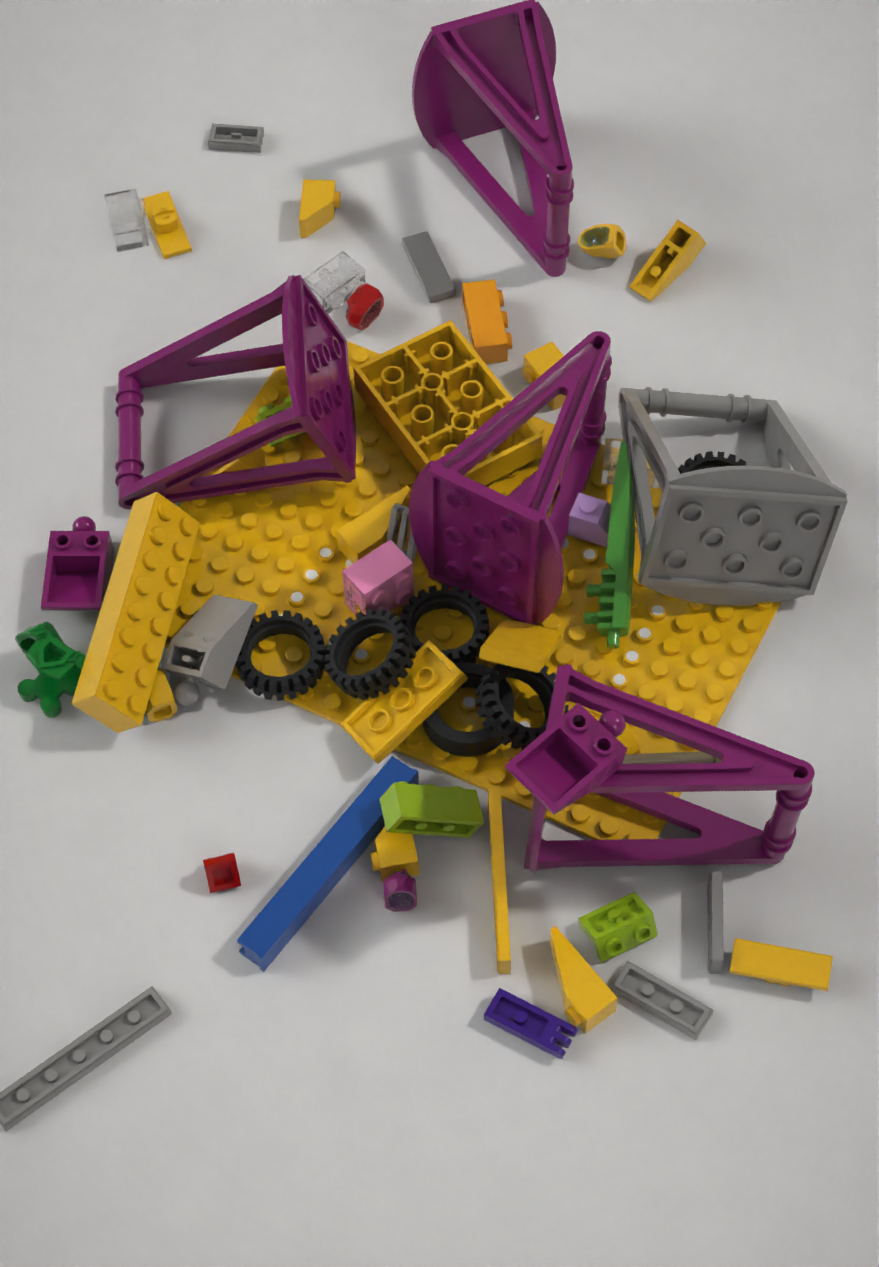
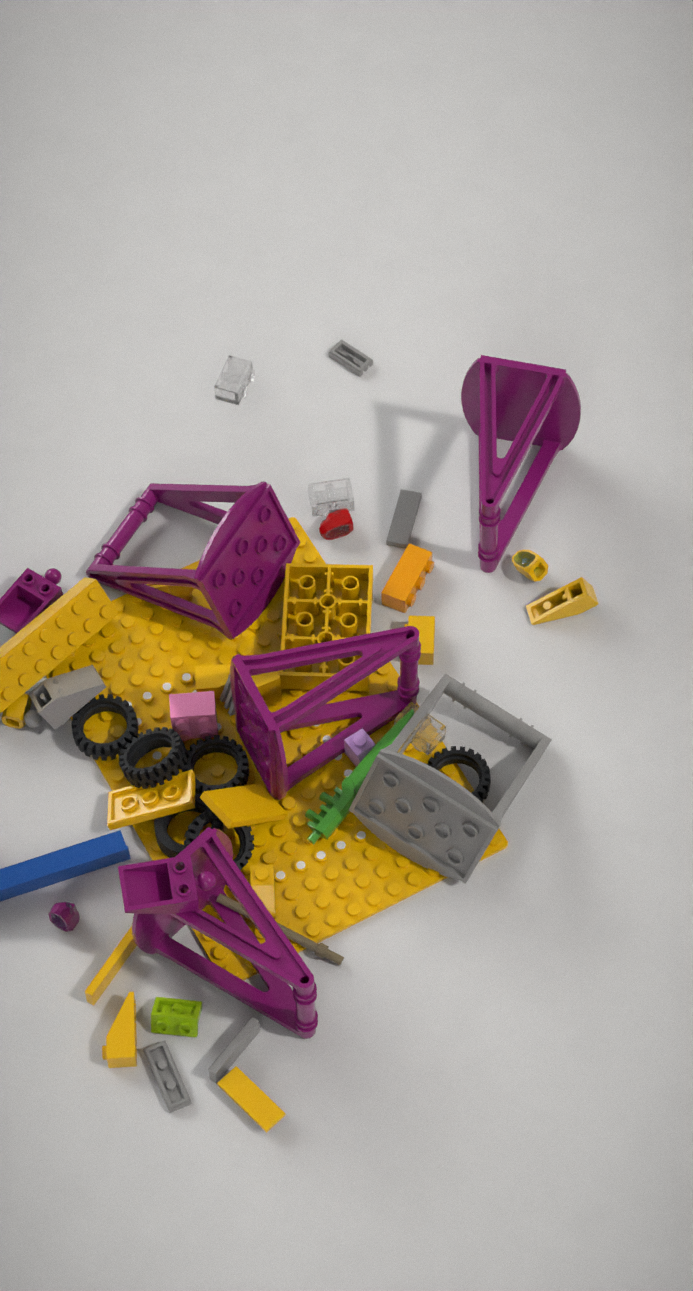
camera: 35 degrees right, 0 degrees up
(166, 225) = (259, 396): yellow piece -> none
(317, 205) = (362, 436): yellow slope -> none
(394, 854) = (84, 887): yellow slope -> none
(431, 810) = (102, 870): lime brick -> none
(529, 1023) = (77, 1040): dark purple hinge -> none

